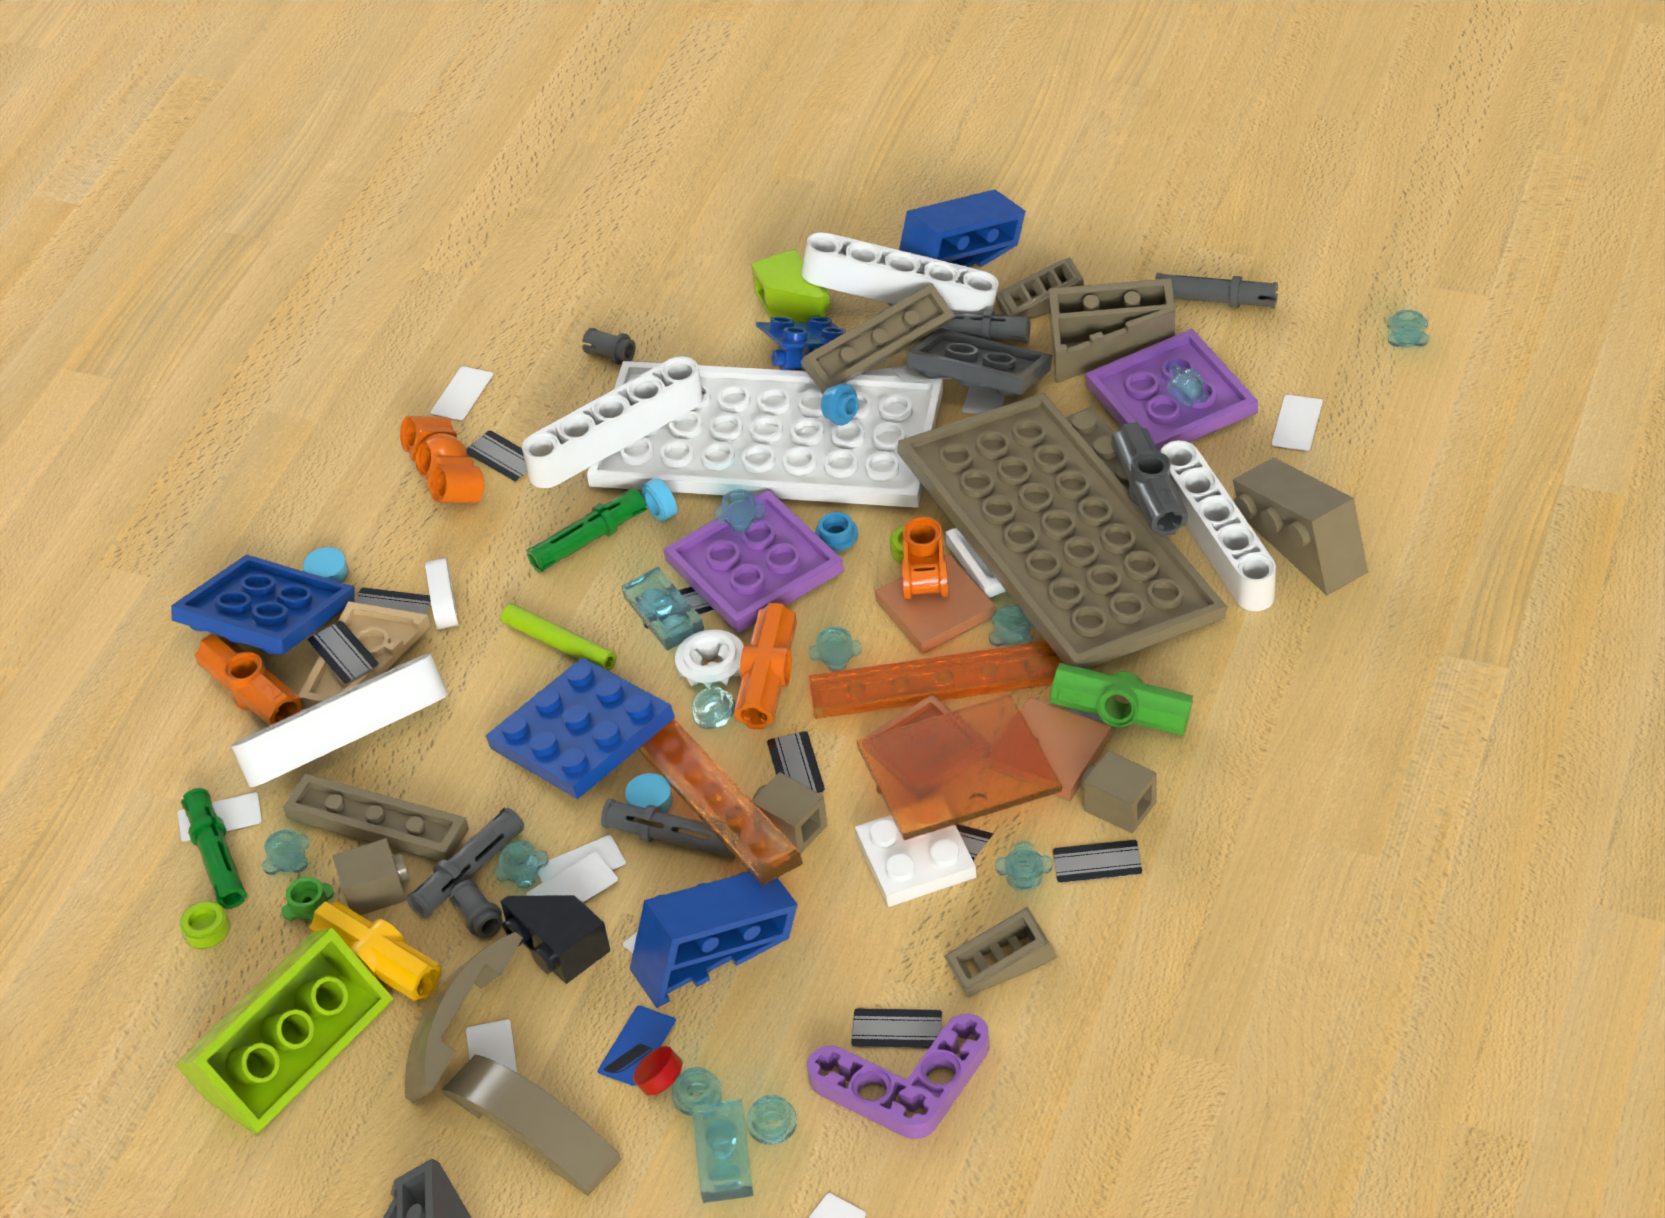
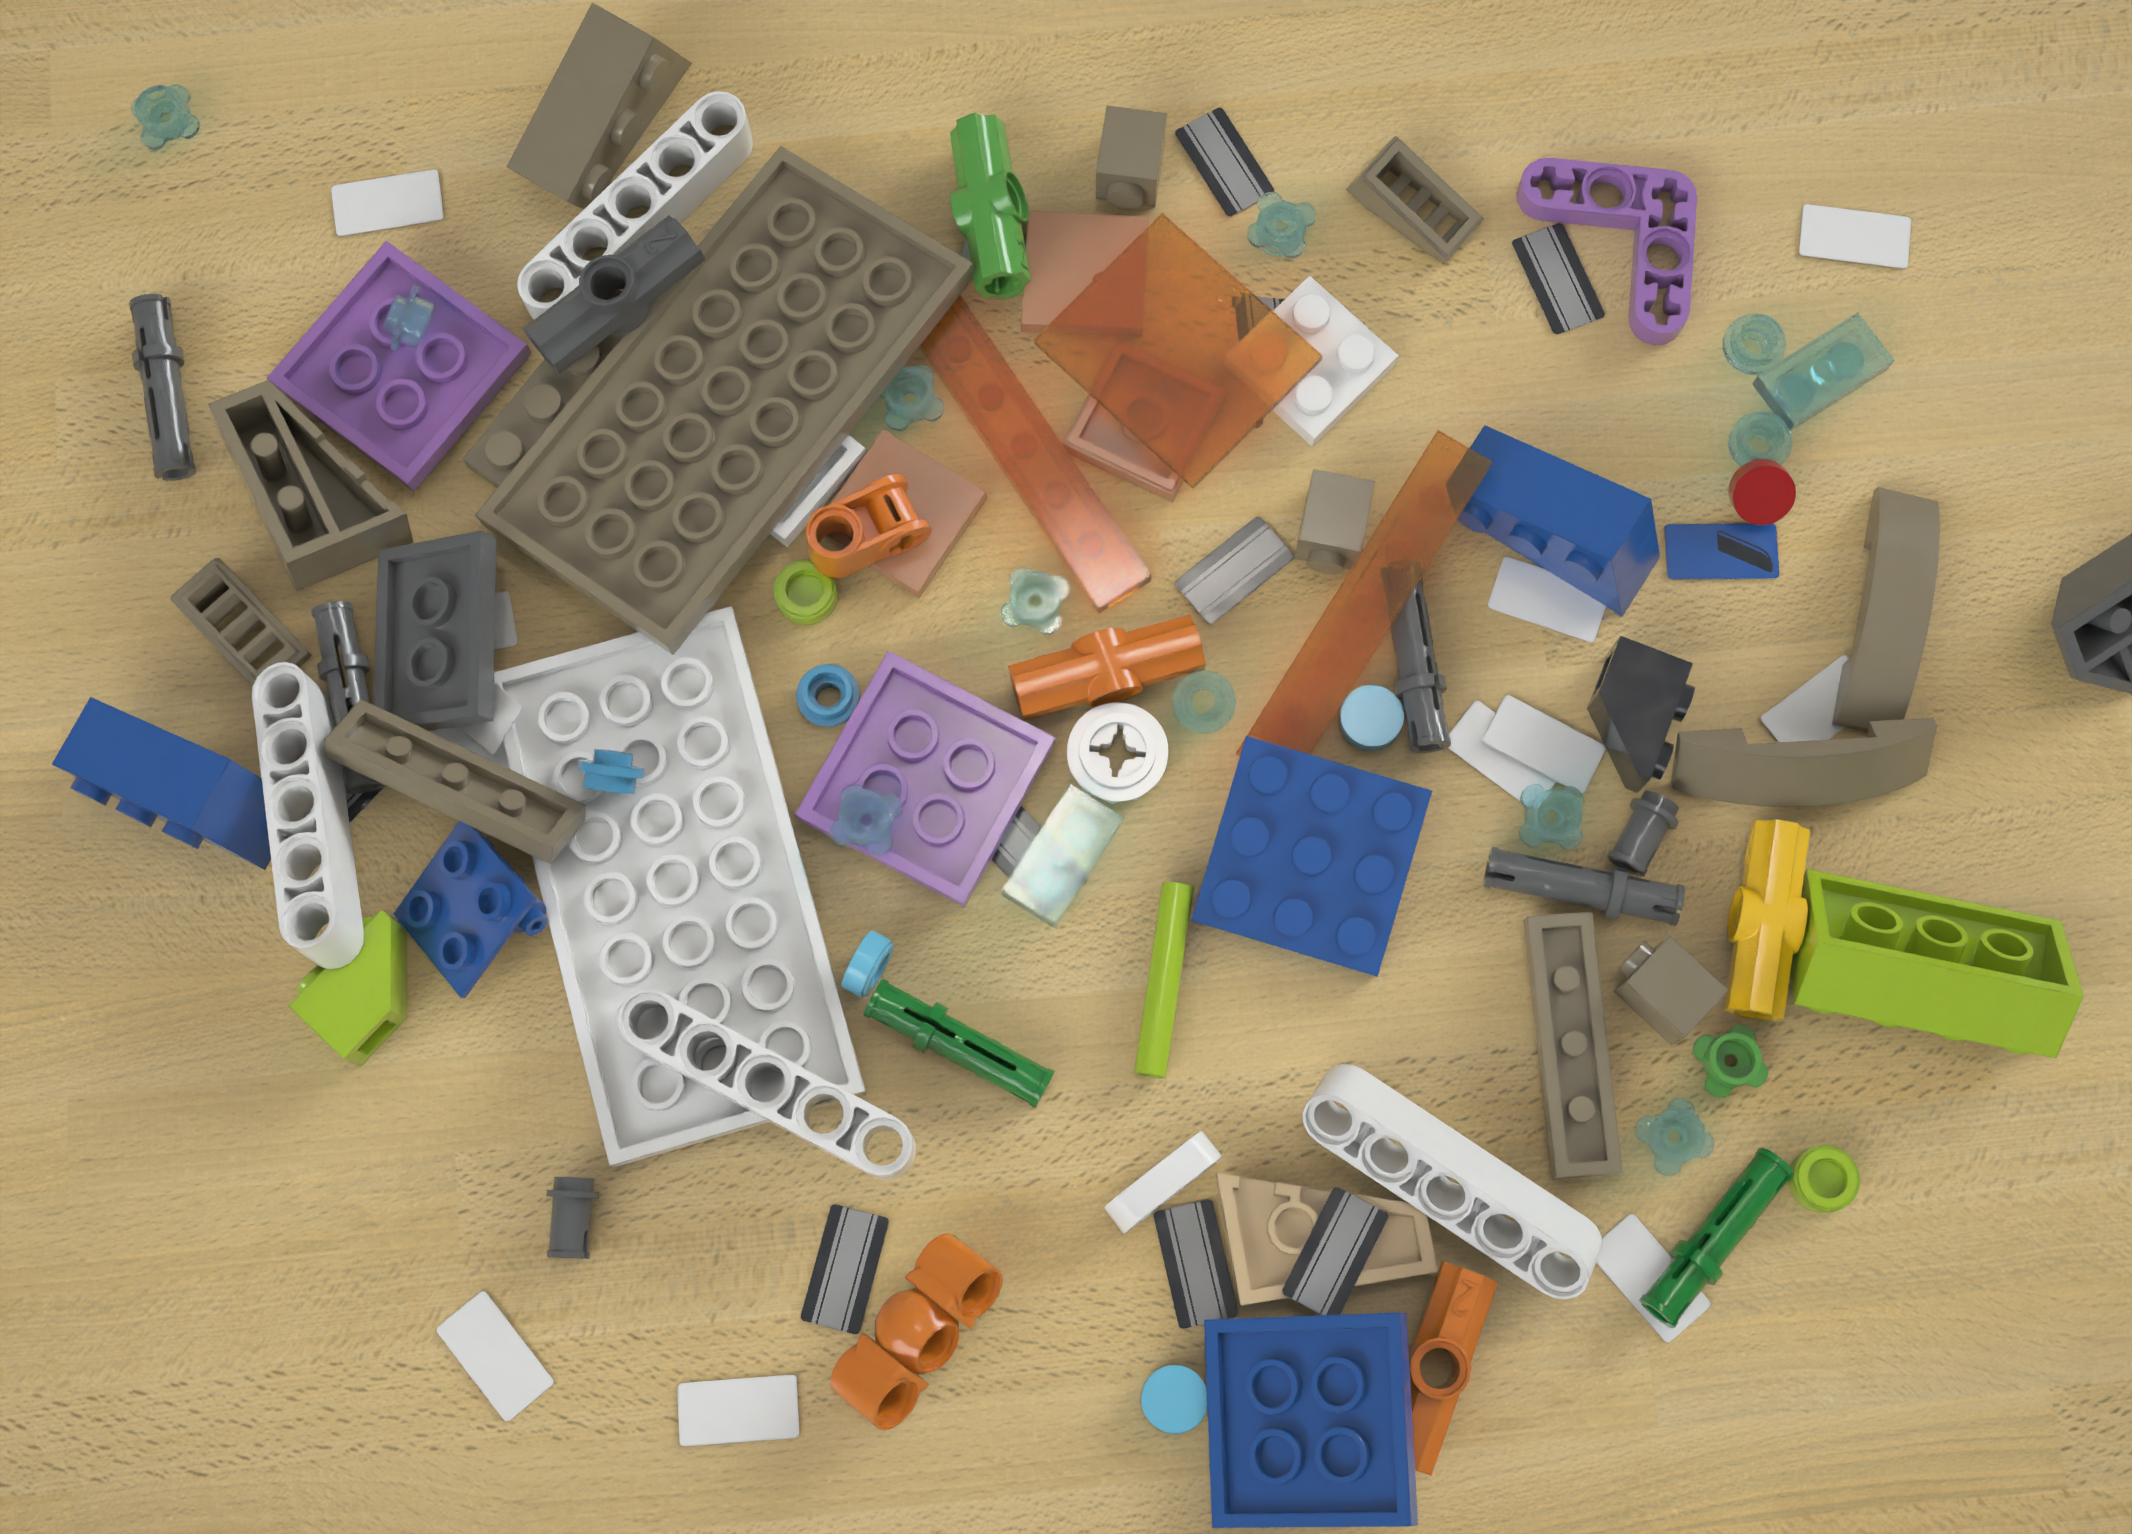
camera: 120 degrees left, 30 degrees up
(562, 307) = (495, 1356): none -> white sticker

